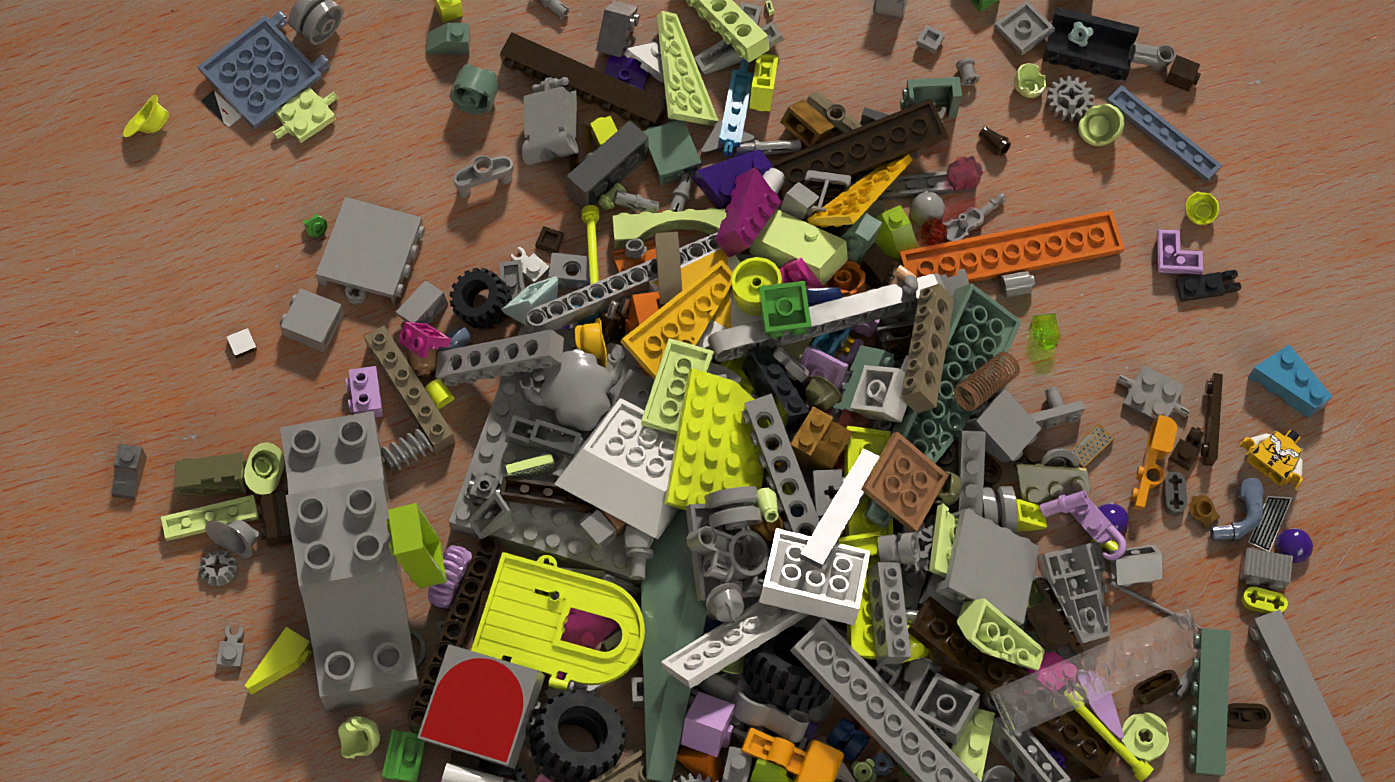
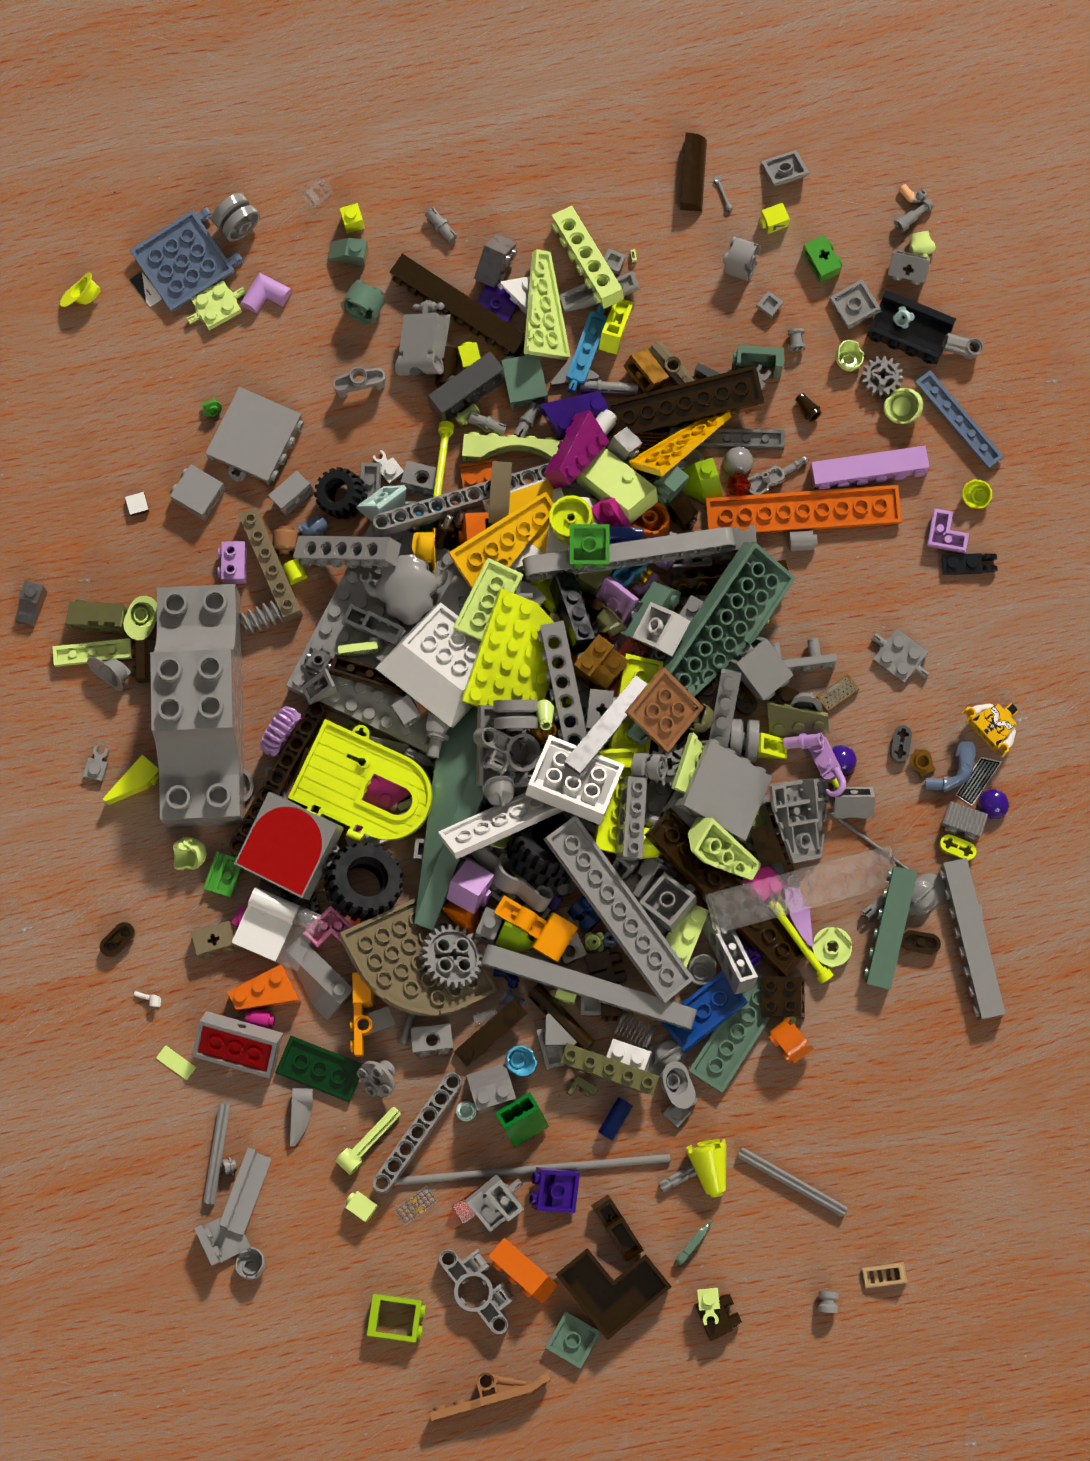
camera: 15 degrees right, 10 degrees up
(225, 574) = (99, 701): light grey gear -> none
(357, 91) = (262, 289): none -> lavender brick
(416, 545) = (251, 708): lime piece -> none
(421, 337) = (286, 521): dark pink bracket -> none
(549, 240) = (408, 446): dark brown tile -> none
(635, 248) = (478, 466): light grey plate -> none
(794, 369) = (590, 593): light grey plate -> none
(827, 178) = (653, 424): light grey piece -> none
(909, 278) = (704, 531): light grey arm -> none
(927, 348) = (705, 596): dark tan brick -> none
(964, 173) = (775, 435): clear pink brick -> none
(1003, 374) = (769, 624): medium nougat piece -> none
(1045, 331) = (818, 587): clear neon green brick -> none
(1076, 196) = (869, 468): none -> lavender brick
(1156, 687) = (849, 907): dark brown plate -> none
(1158, 447) = (894, 703): light orange plate -> none
(1183, 73) = (988, 366): dark brown brick -> none
(1185, 452) = (918, 710): dark brown plate -> none
(1209, 449) = (953, 659): dark brown plate -> none
(1243, 659) = (926, 894): none -> light grey piece
(1292, 381) = (1022, 660): dark azure wedge -> none

